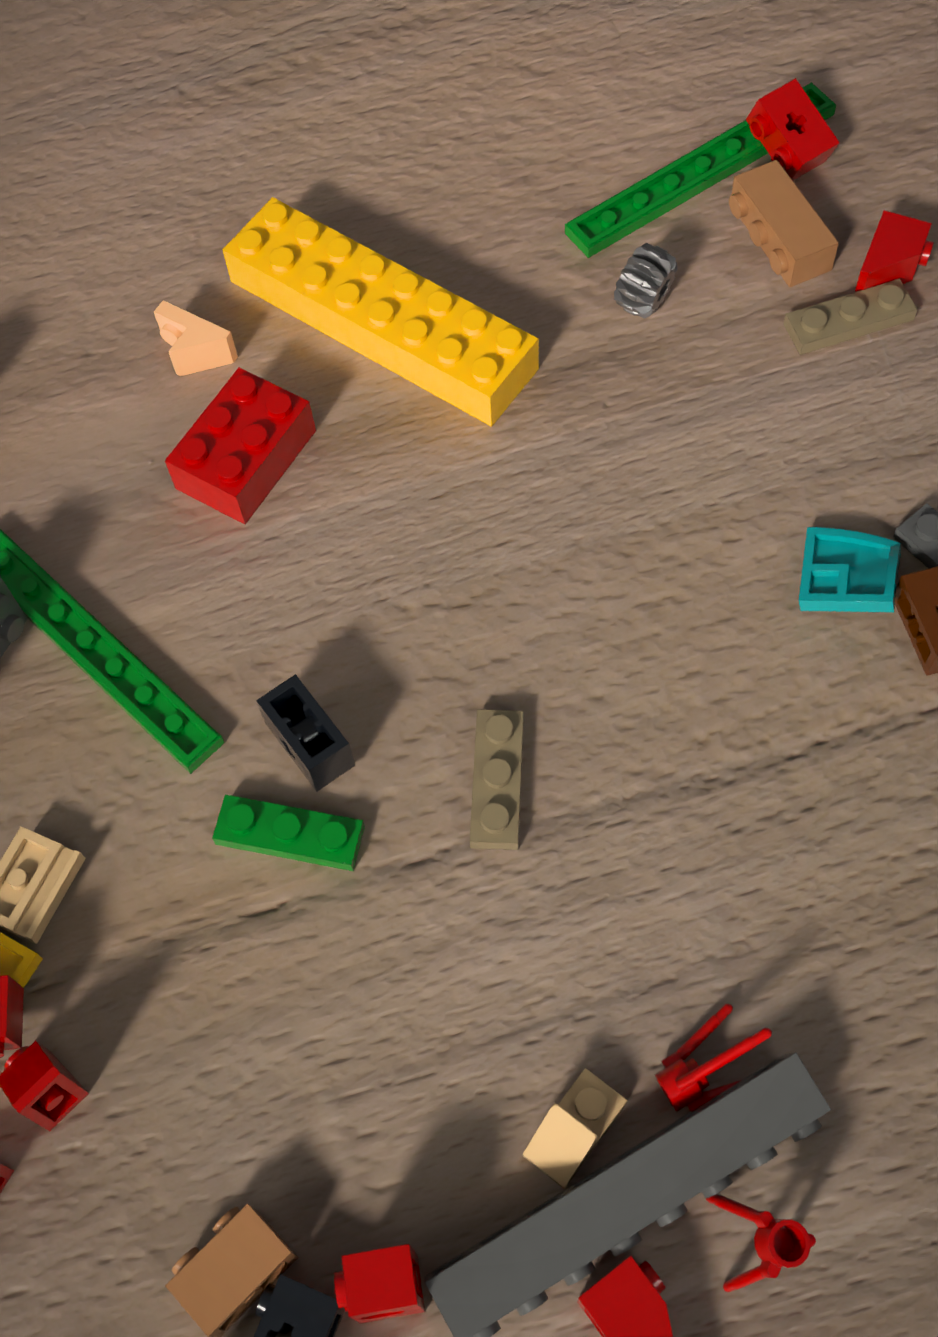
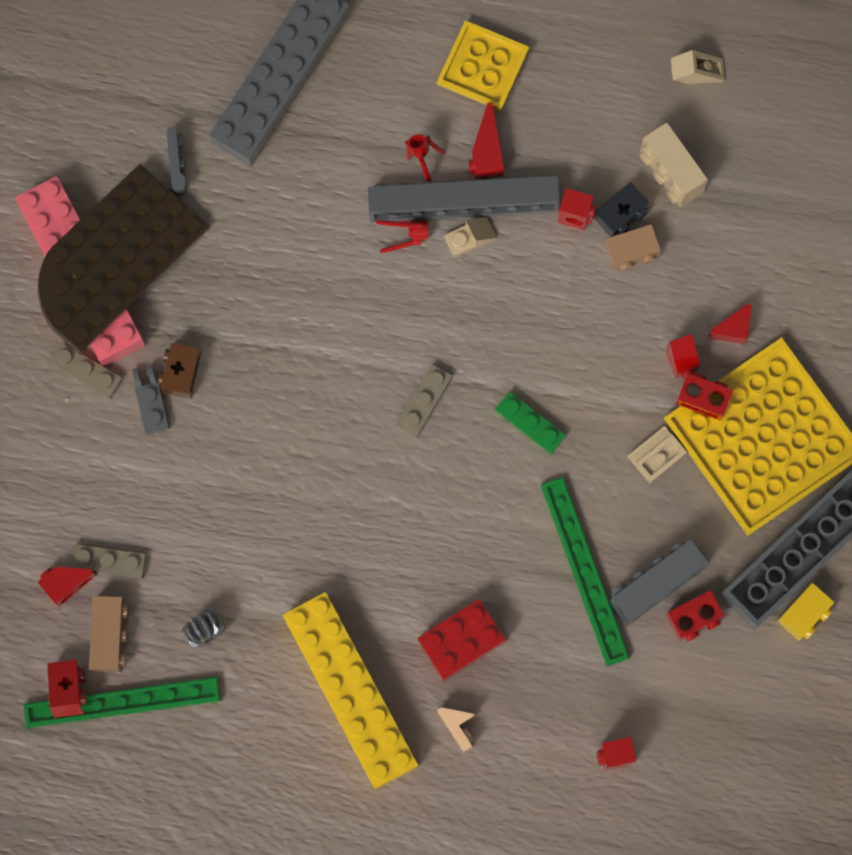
camera: 155 degrees left, 15 degrees up
(306, 732) = (501, 459): black brick -> none
(848, 571) = (205, 416): teal plate -> none

